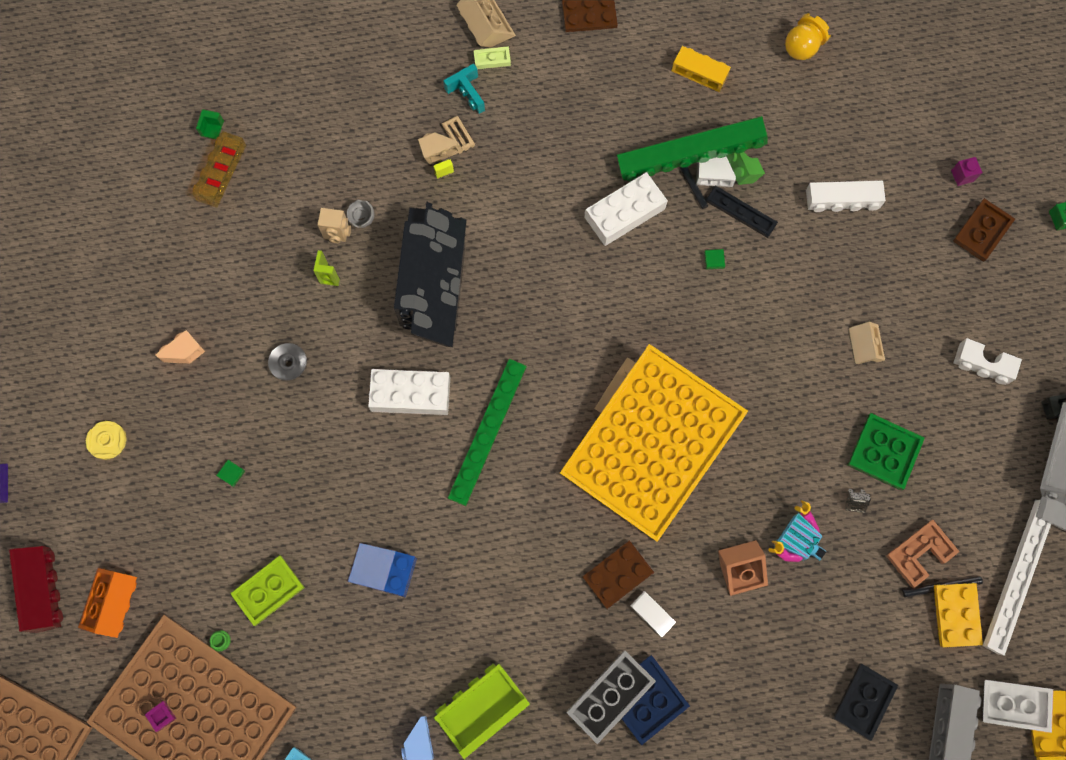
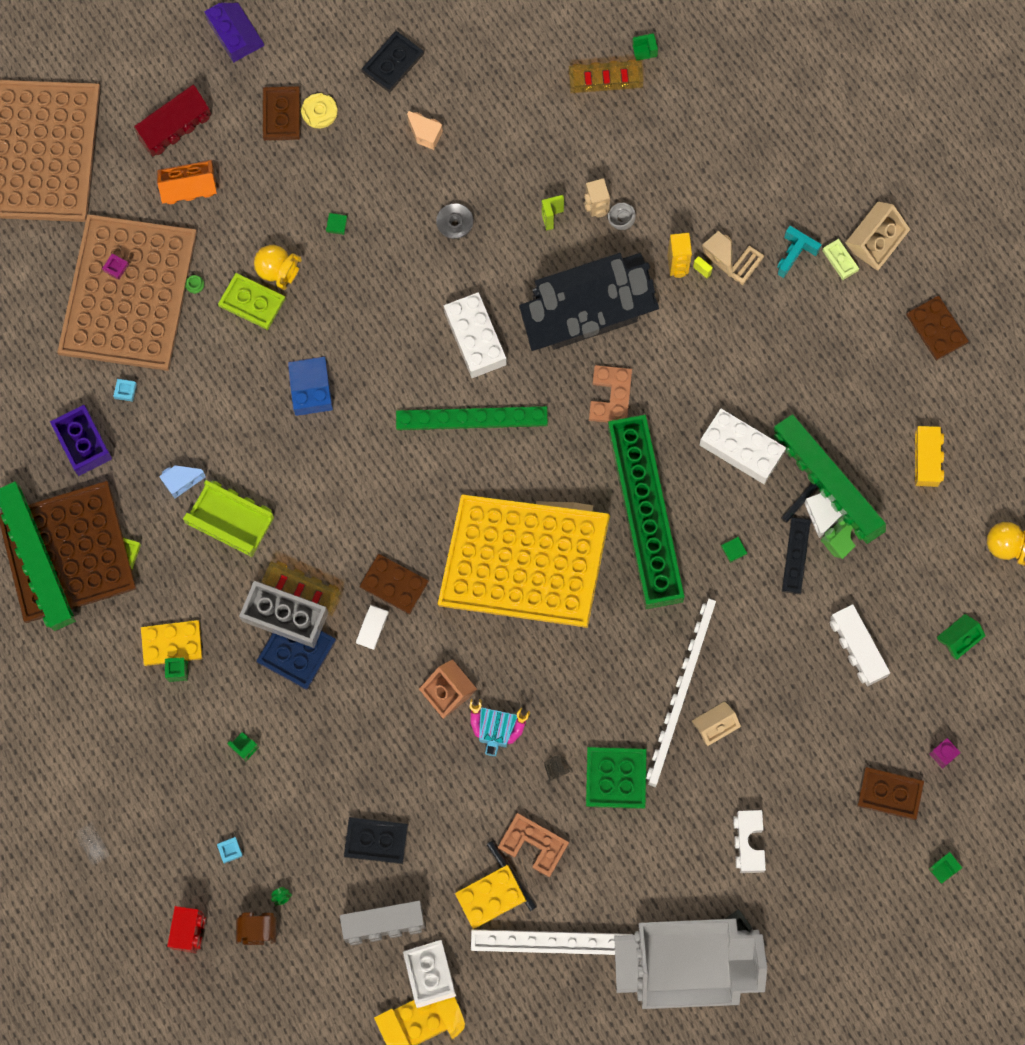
camera: 70 degrees right, 0 degrees up
(88, 477) = (281, 113): none -> reddish brown plate
(95, 349) = (392, 61): none -> black plate
(242, 550) = (275, 265): none -> yellow tile
(426, 178) = (679, 254): none -> yellow brick
(515, 285) = (620, 381): none -> nougat plate
(586, 666) = (297, 584): none -> clear yellow brick
(651, 315) = (645, 512): none -> green brick
(834, 363) = (677, 700): none -> white plate
(866, 114) = (961, 636): none -> green panel

